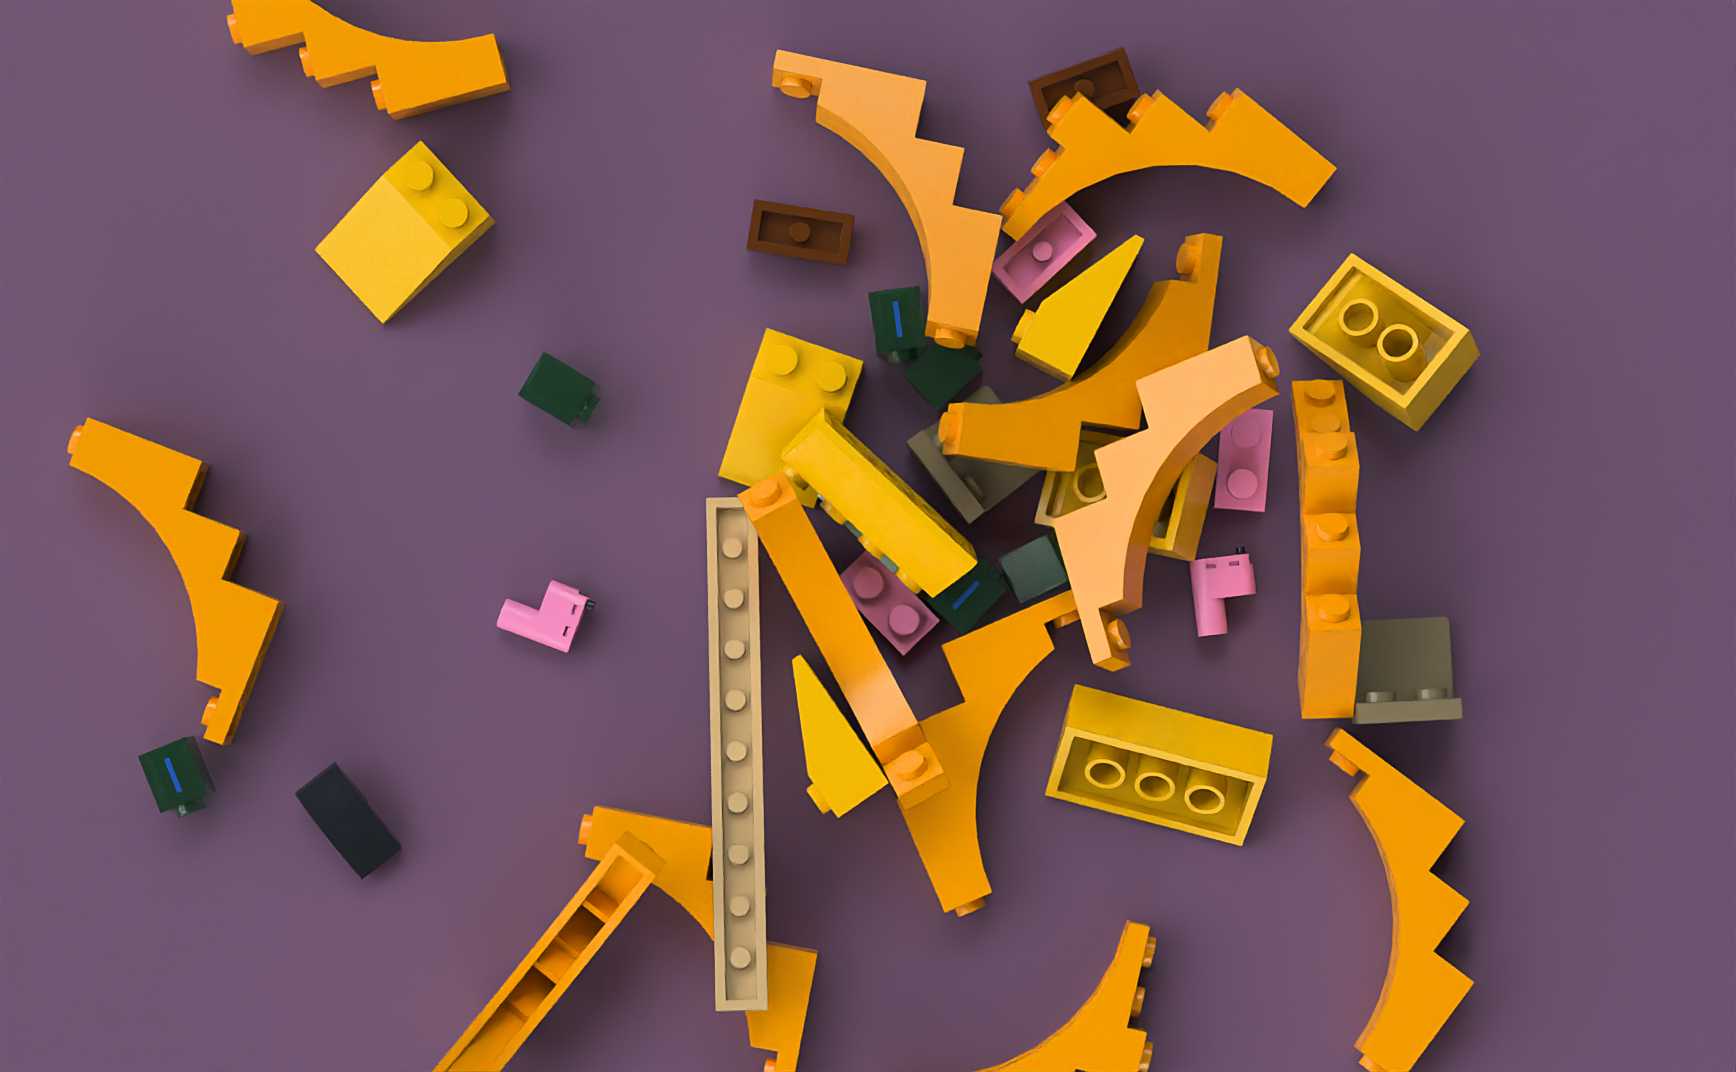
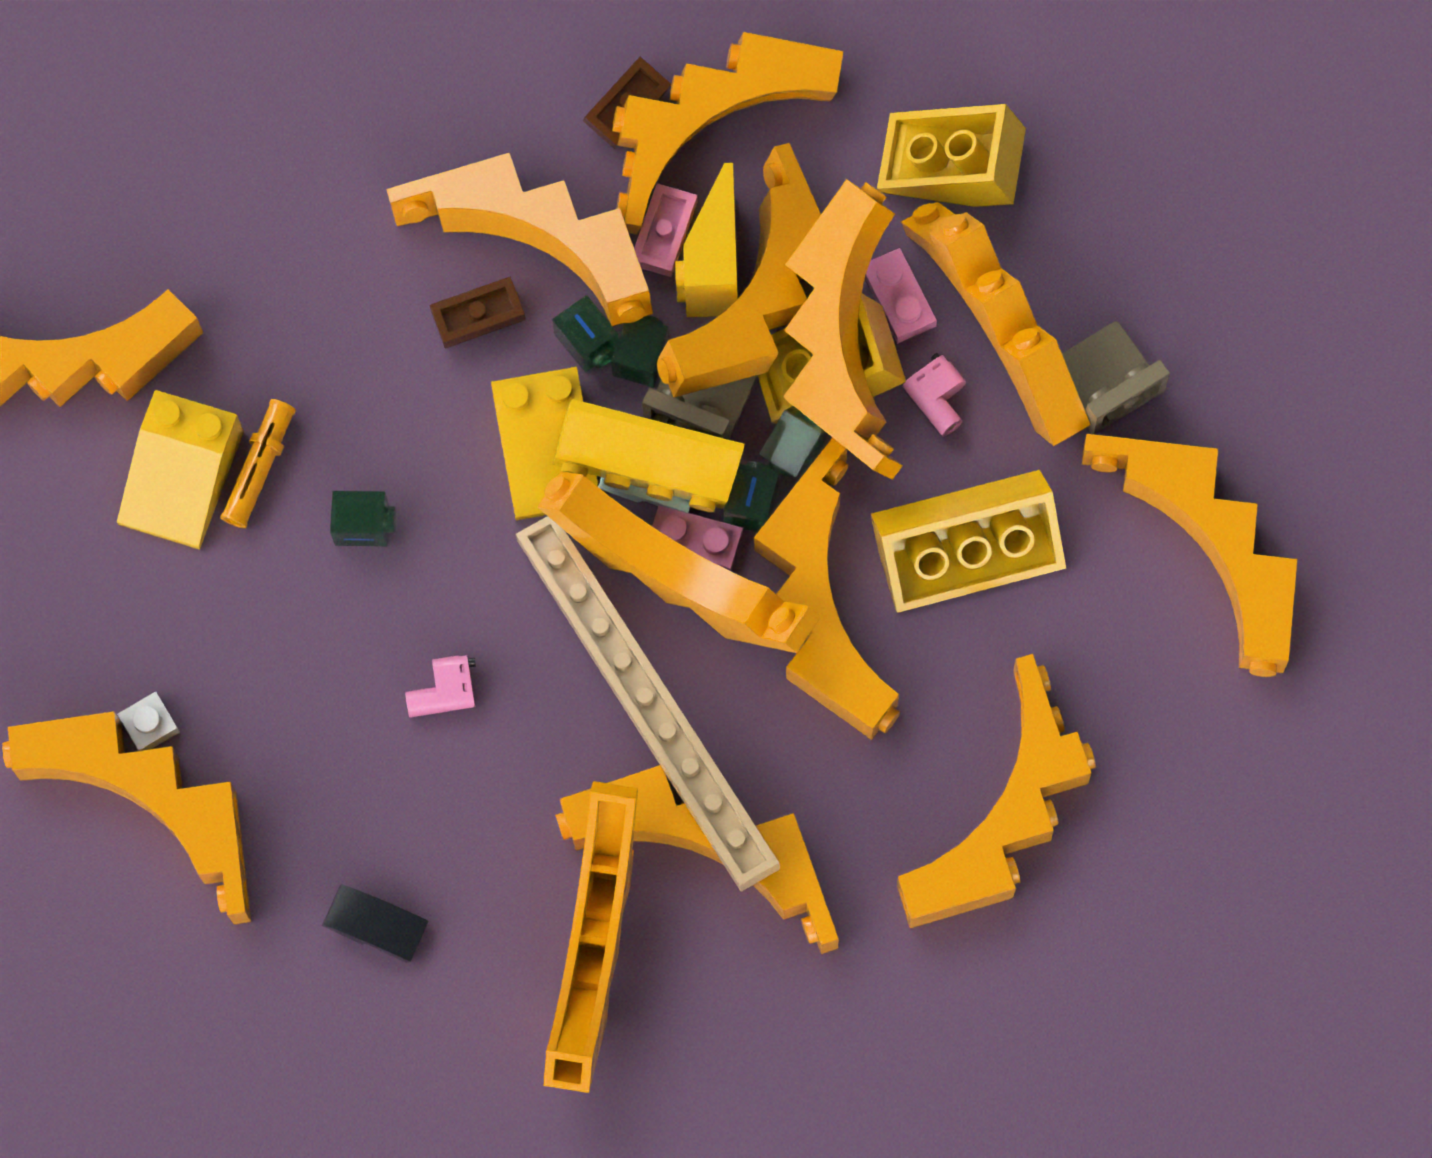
camera: 30 degrees left, 15 degrees down
(178, 776) = (223, 961): clear green brick -> none
(235, 482) = (148, 722): none -> white plate
(536, 231) = (265, 446): none -> light orange pin
(835, 755) = (720, 656): yellow slope -> none

